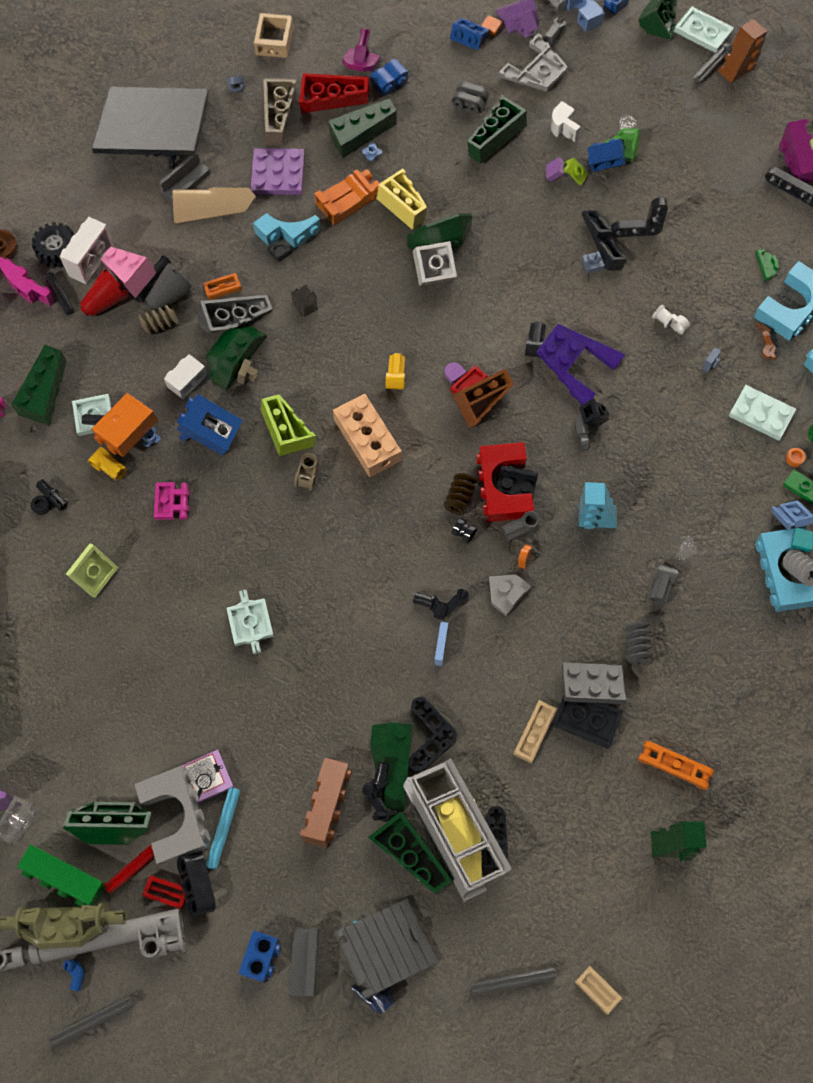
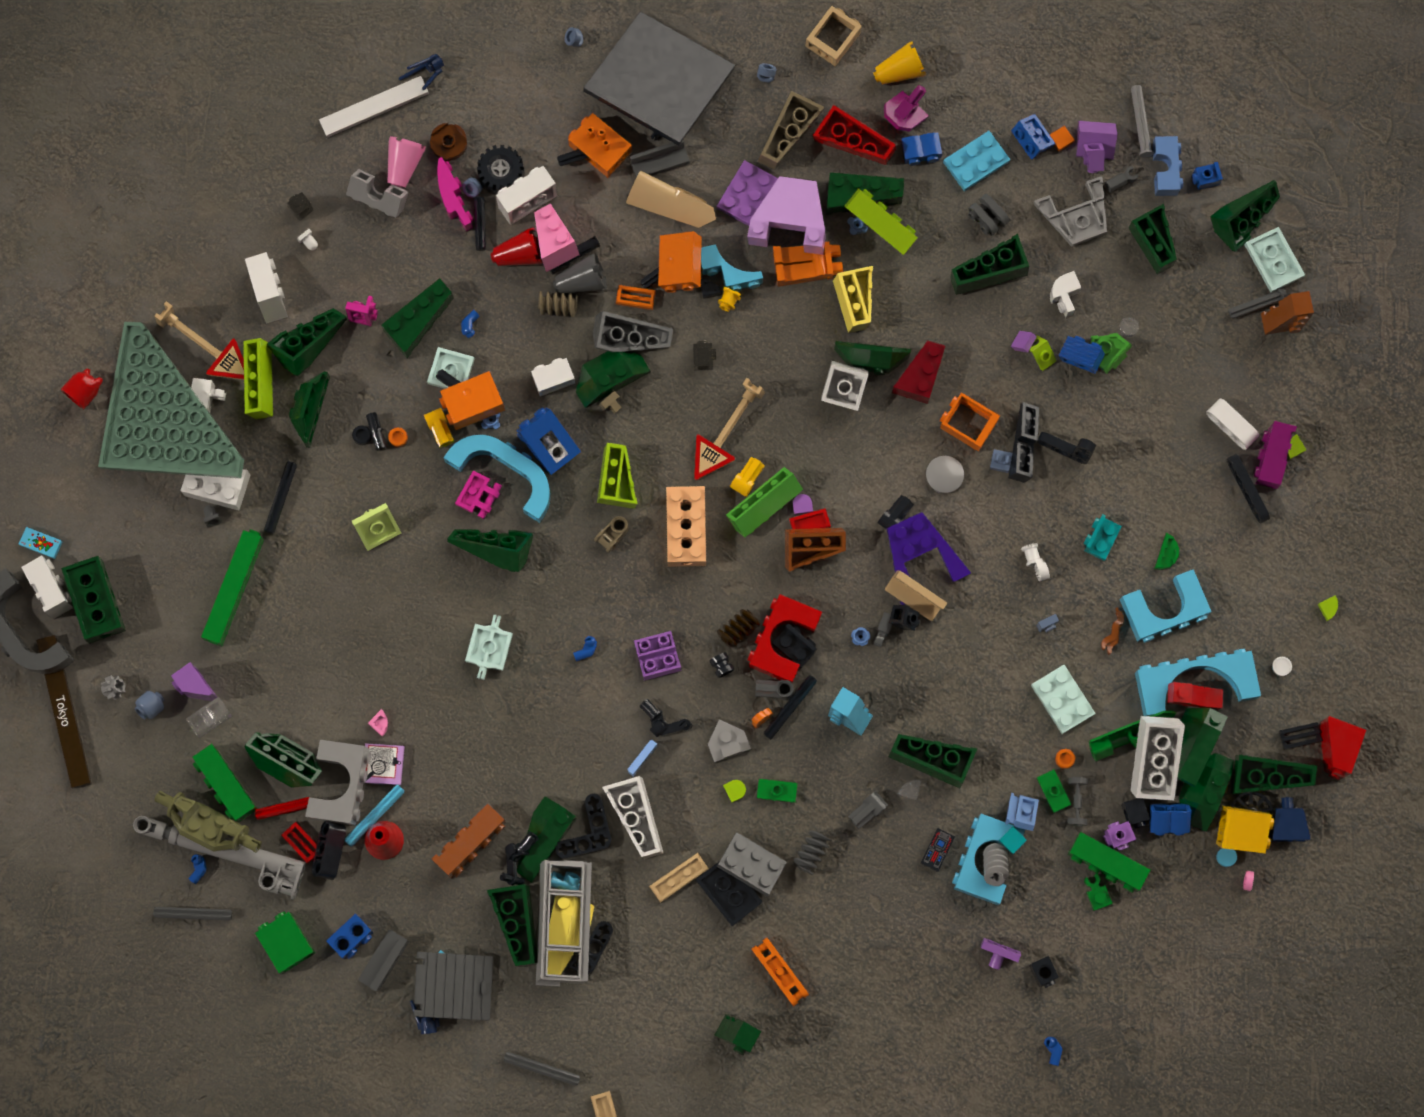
camera: 25 degrees right, 10 degrees up
(37, 269) = (472, 187): none -> sand blue tile
(65, 127) = (574, 37): none -> sand blue tile
(74, 491) = (398, 437): none -> orange tile
(88, 372) = (466, 324): none -> blue arm
(127, 191) = (597, 145): none -> orange piece
(183, 457) = (522, 464): none -> medium azure arch
(184, 741) = (379, 723): none -> bright pink tile
(197, 998) = (284, 942): none -> green brick
(217, 535) = (501, 549): none -> dark green wedge
(243, 239) = (678, 263): none -> orange piece
(244, 846) = (388, 845): none -> red cone
(300, 249) = (728, 299): none -> yellow brick
(312, 158) = (790, 206): none -> lavender wedge
(339, 28) = (900, 66): none -> yellow cone
(340, 579) = (588, 649): none -> blue arm
(355, 372) = (710, 455): none -> tan piece
(390, 135) = (880, 221): none -> lime brick
(403, 552) = (657, 655): none -> medium lavender slope
(422, 383) = (764, 502): none -> bright green brick
(436, 68) = (976, 160): none -> medium azure plate
(438, 788) = (567, 882): none -> medium azure plate
(461, 692) = (635, 813): none -> white wedge
(491, 229) = (920, 375): none -> dark red wedge
(538, 629) = (735, 790): none -> lime tile
(543, 534) = (790, 706): none -> black axle
(550, 232) = (991, 416): none -> orange window
(555, 293) = (945, 474): none -> light grey dish
(566, 444) = (865, 636): none -> medium blue plate
(575, 610) = (777, 790): none -> green plate
(584, 388) = (915, 595): none -> tan panel
(607, 54) = (1154, 238): none -> dark green wedge
(691, 511) = (934, 758): none -> dark green wedge
(709, 278) = (1102, 538): none -> teal bracket
(742, 586) = (937, 850): none -> black tile
(752, 150) = (1232, 423): none -> white beam

